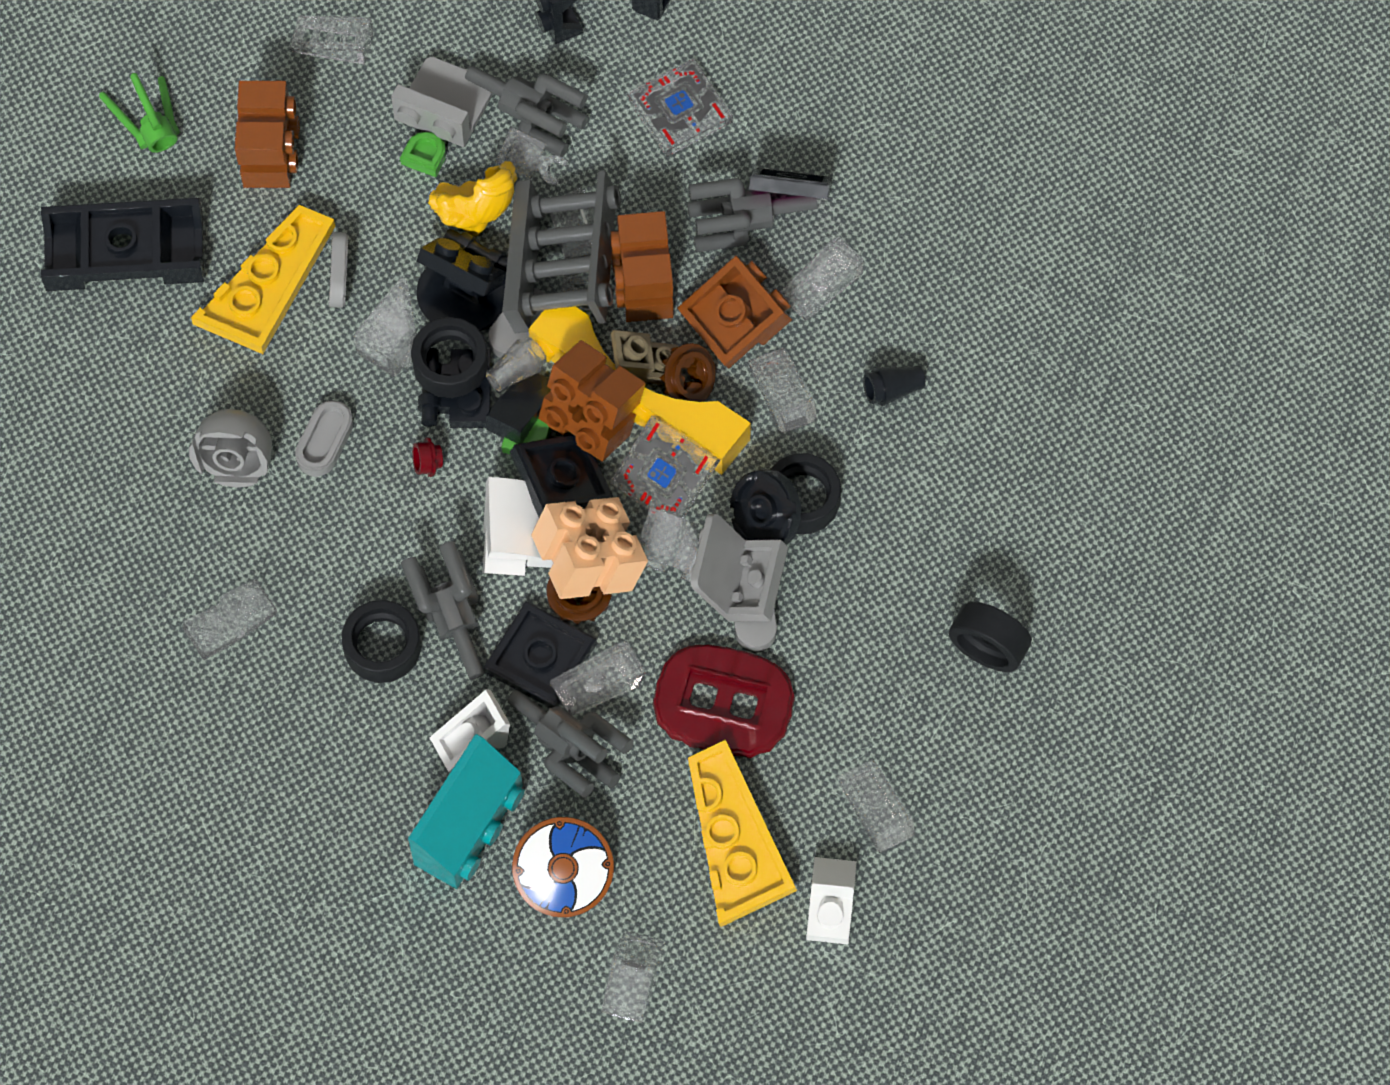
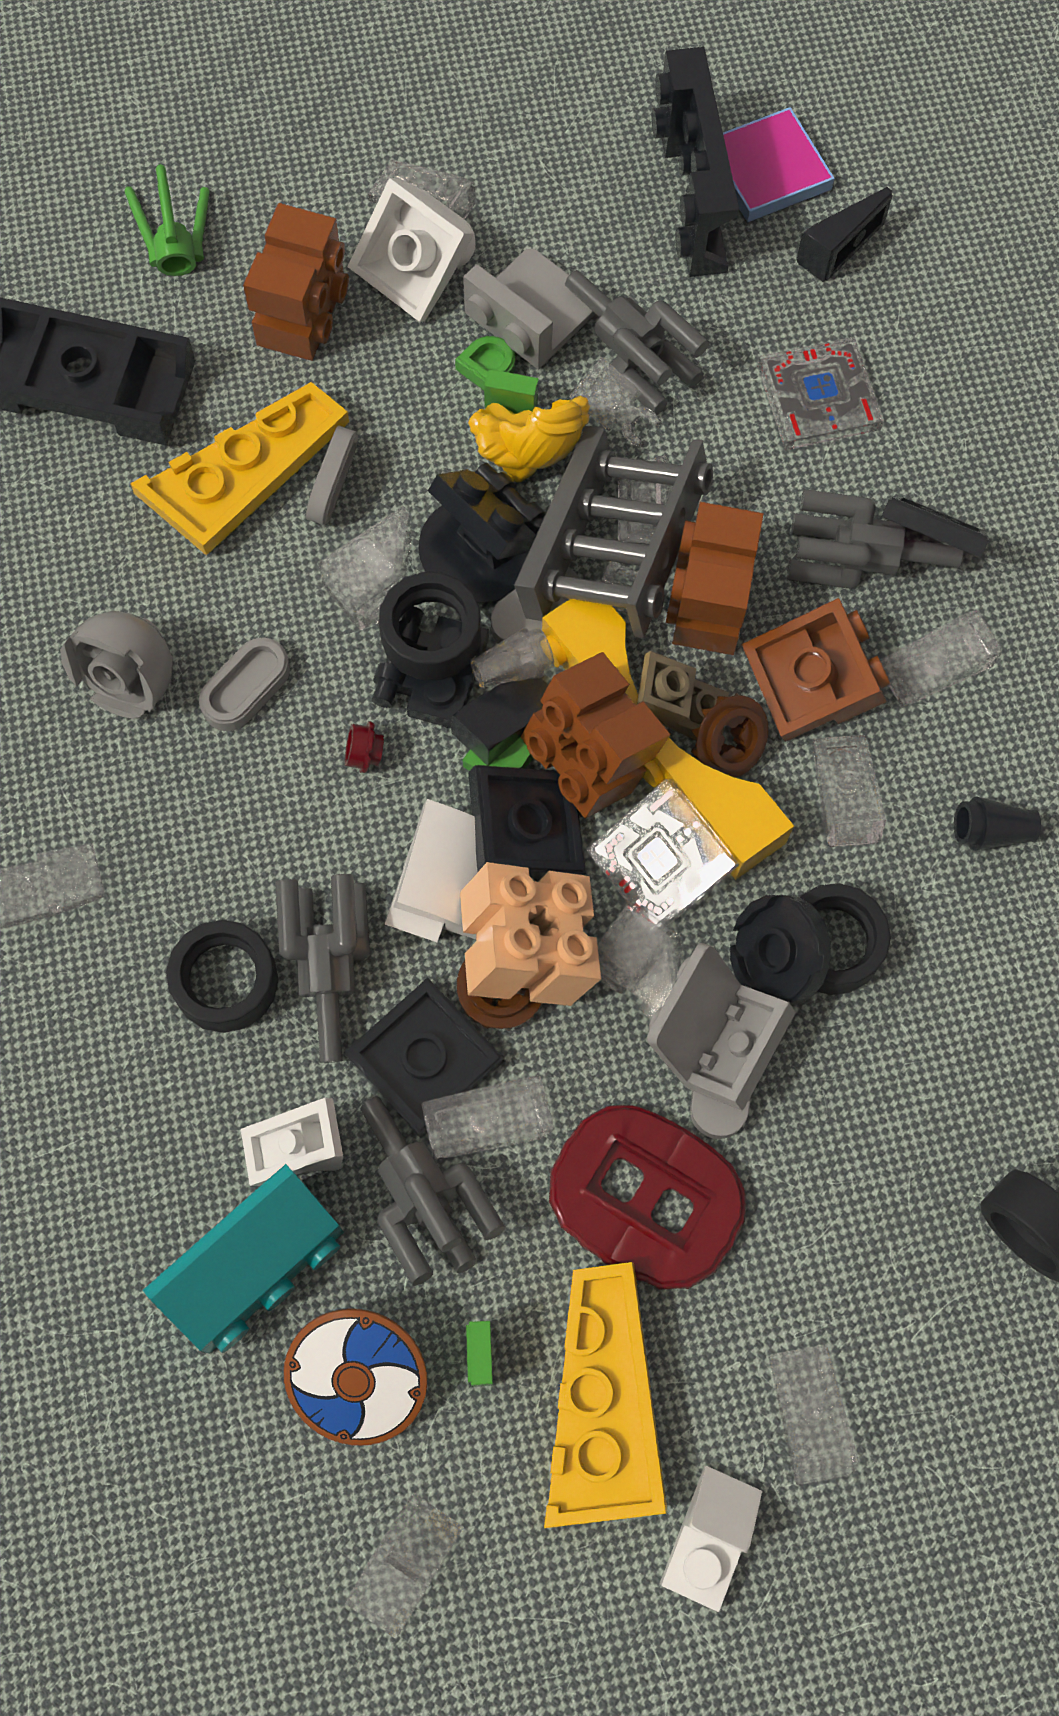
camera: 15 degrees right, 5 degrees up
(341, 82) = (412, 247): none -> white slope
(451, 170) = (511, 391): none -> bright green tile
(641, 829) = (479, 1353): none -> bright green tile

